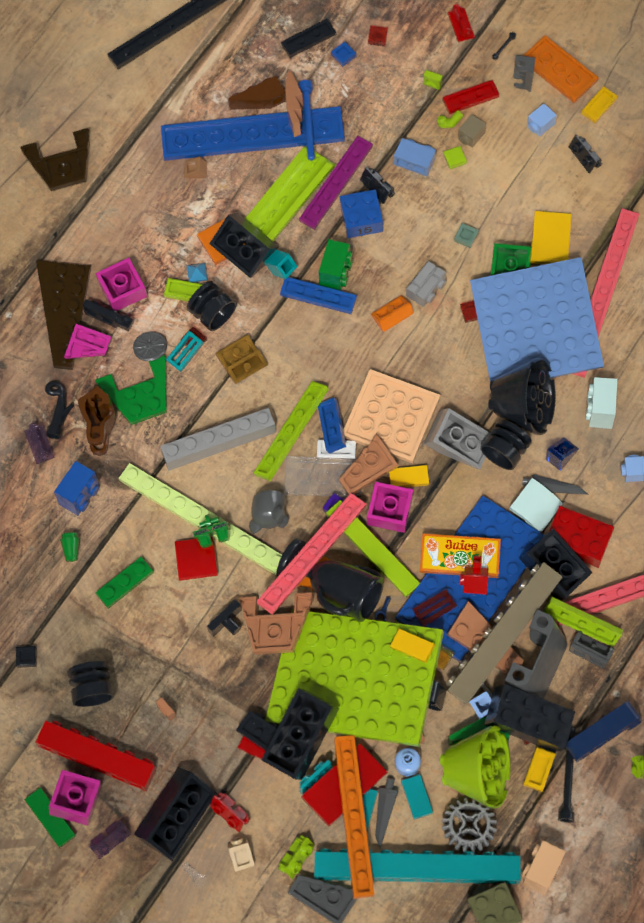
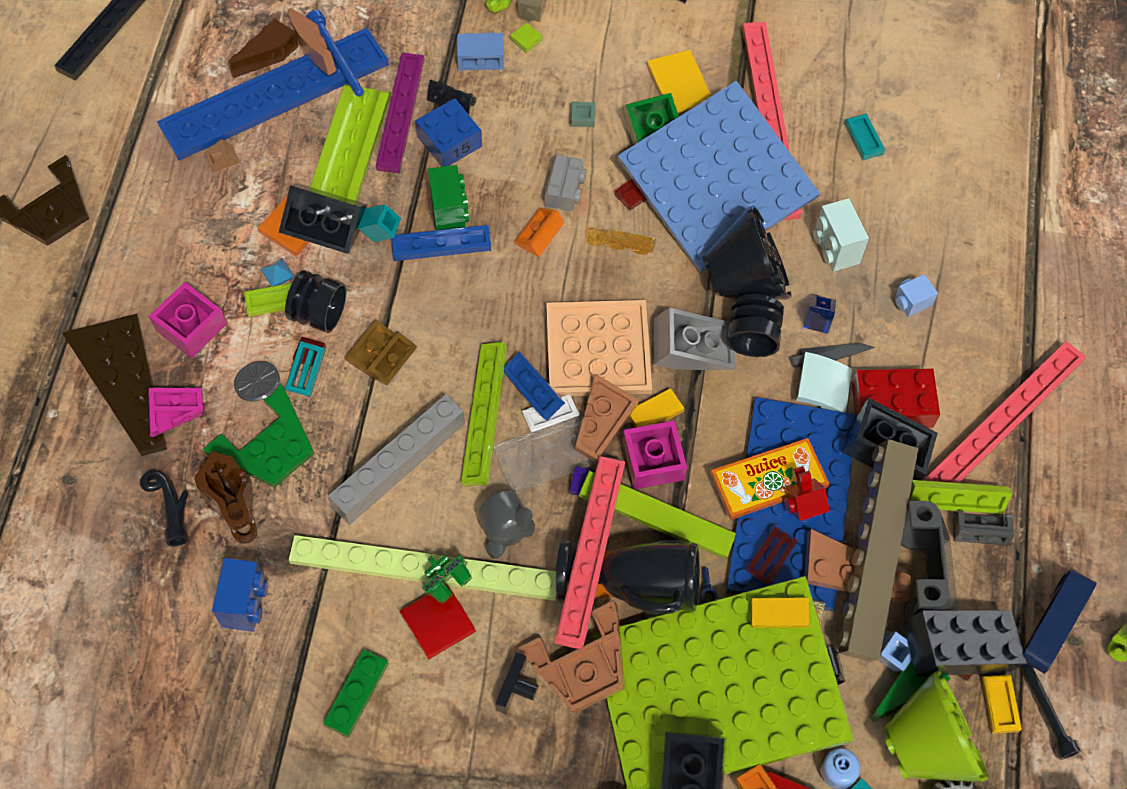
camera: 30 degrees left, 5 degrees down
(39, 443) = (161, 558): clear purple hinge -> none
(70, 546) = (261, 675): green cone -> none
(107, 316) = (185, 365): black hinge -> none
(446, 343) = (620, 240): none -> clear yellow hinge

